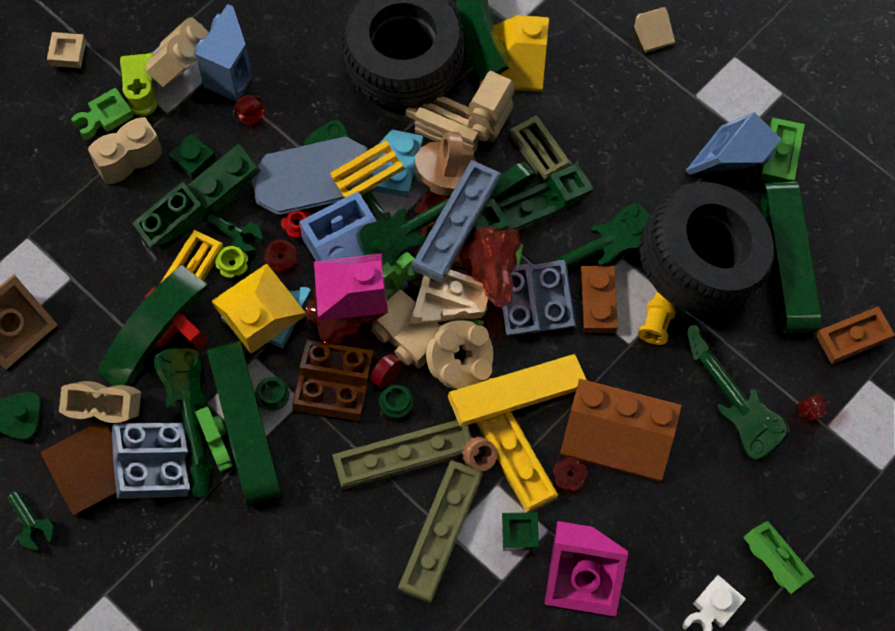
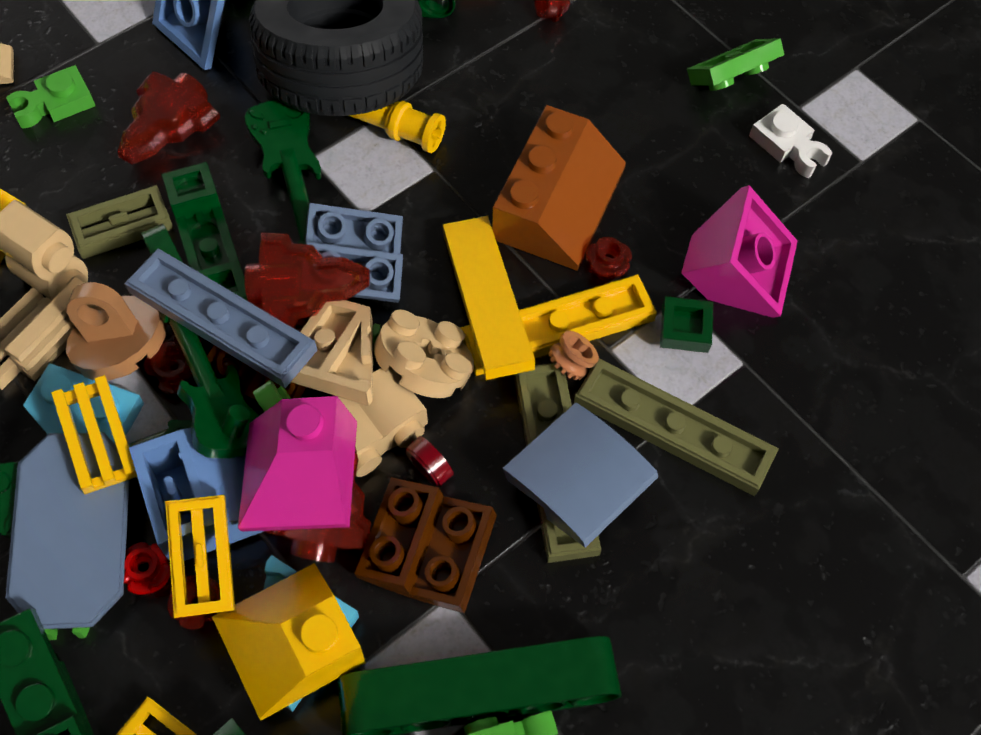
camera: 85 degrees left, 5 degrees down
(229, 254) = (174, 675): lime plate -> none
(237, 233) = (134, 671): dark green bar -> none
(272, 393) = (434, 637): dark green plate -> none
(297, 257) = (176, 556): none -> yellow tile
(385, 462) = (580, 473): none -> sand blue slope
(396, 401) = (475, 457): dark green plate -> none
(598, 299) = (366, 188): dark orange plate -> none
(629, 154) = (165, 114): none -> clear red rock
(636, 84) = (56, 94): none -> bright green plate
(758, 426) = (573, 49): dark green piece -> none

